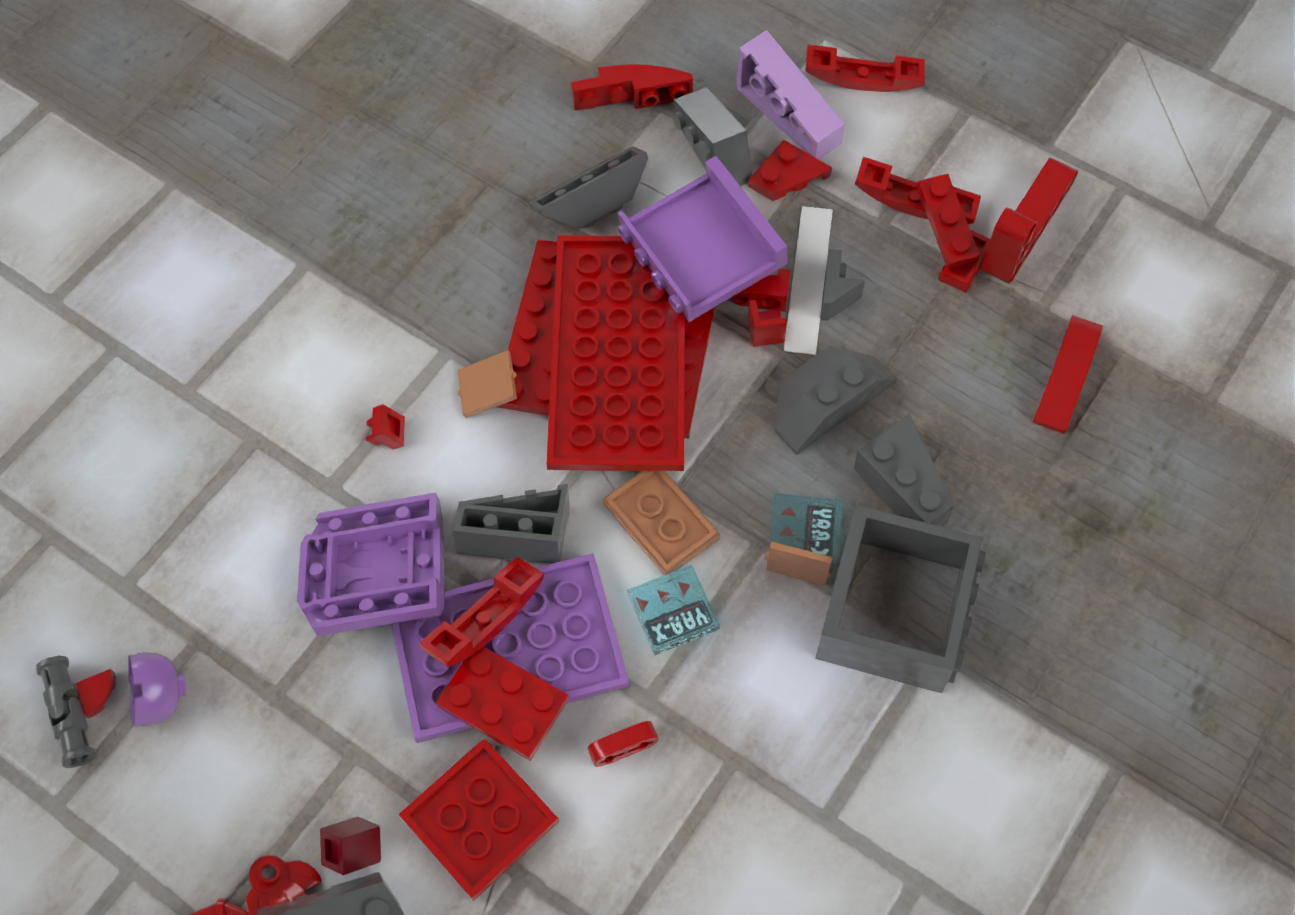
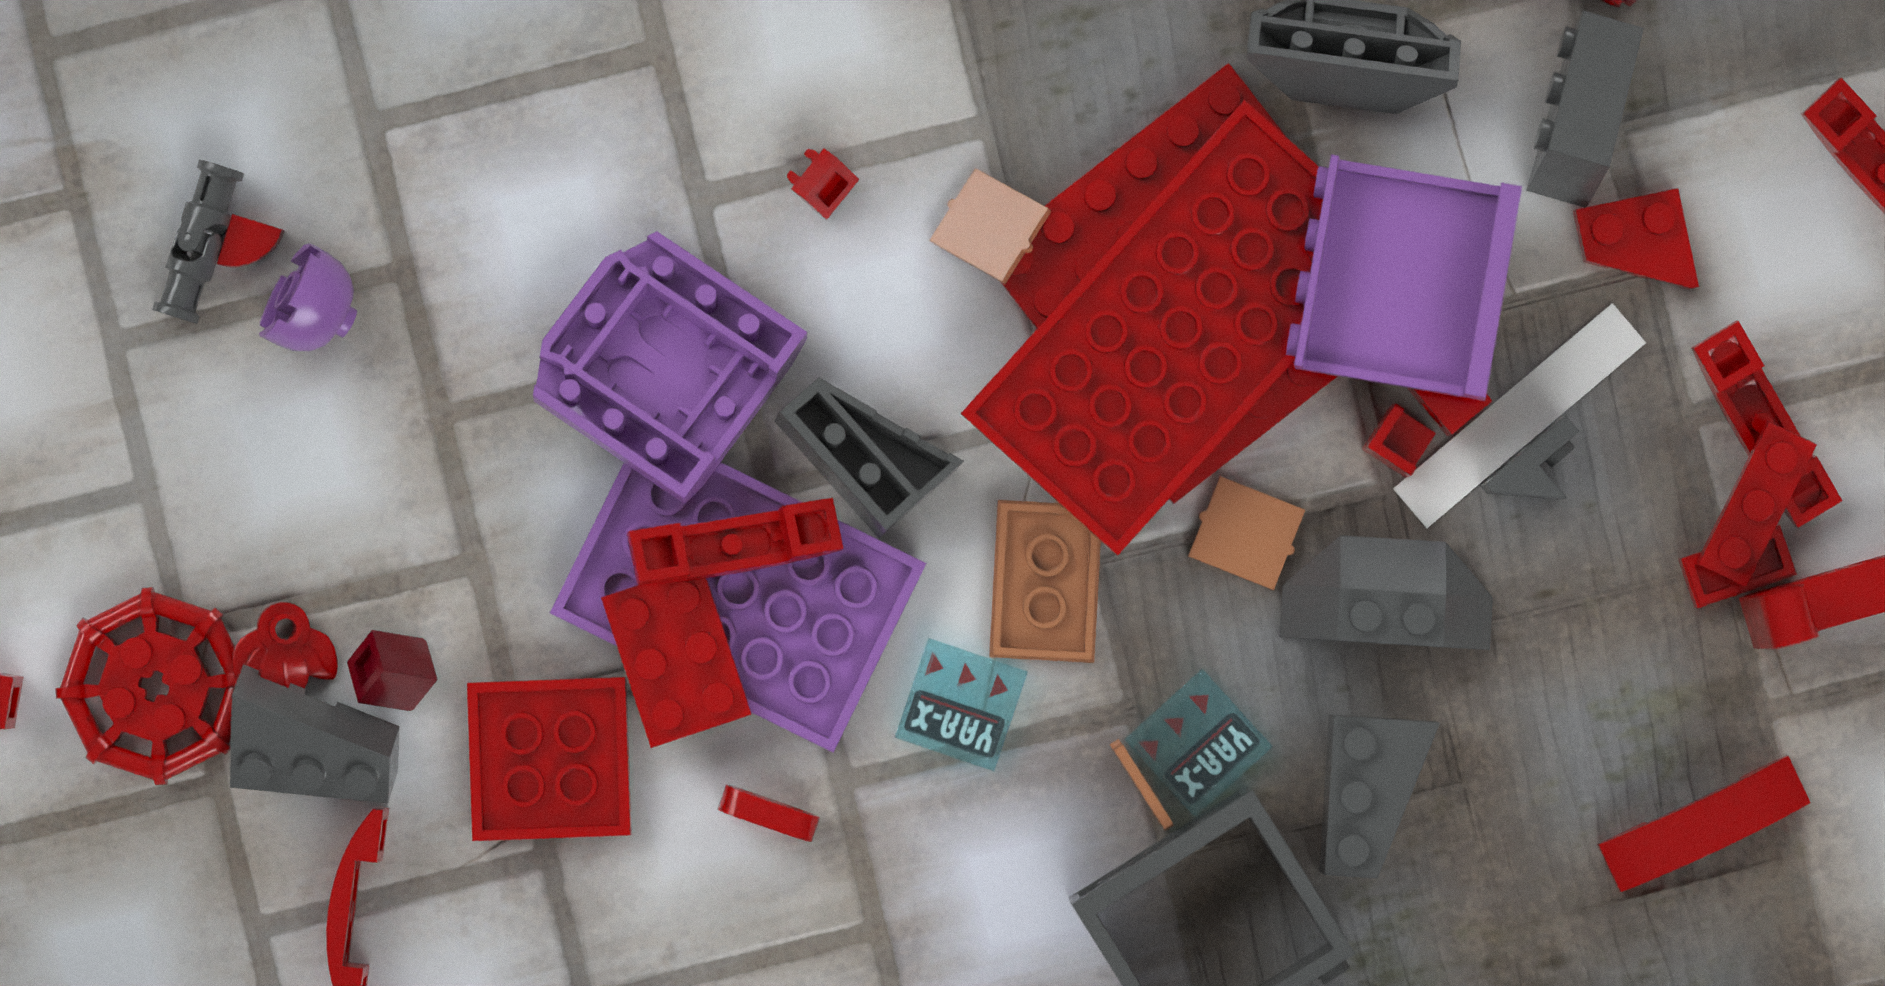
camera: 40 degrees right, 25 degrees up
(735, 422) = (1246, 533): none -> nougat piece
(787, 96) = (1738, 140): lavender wedge -> none

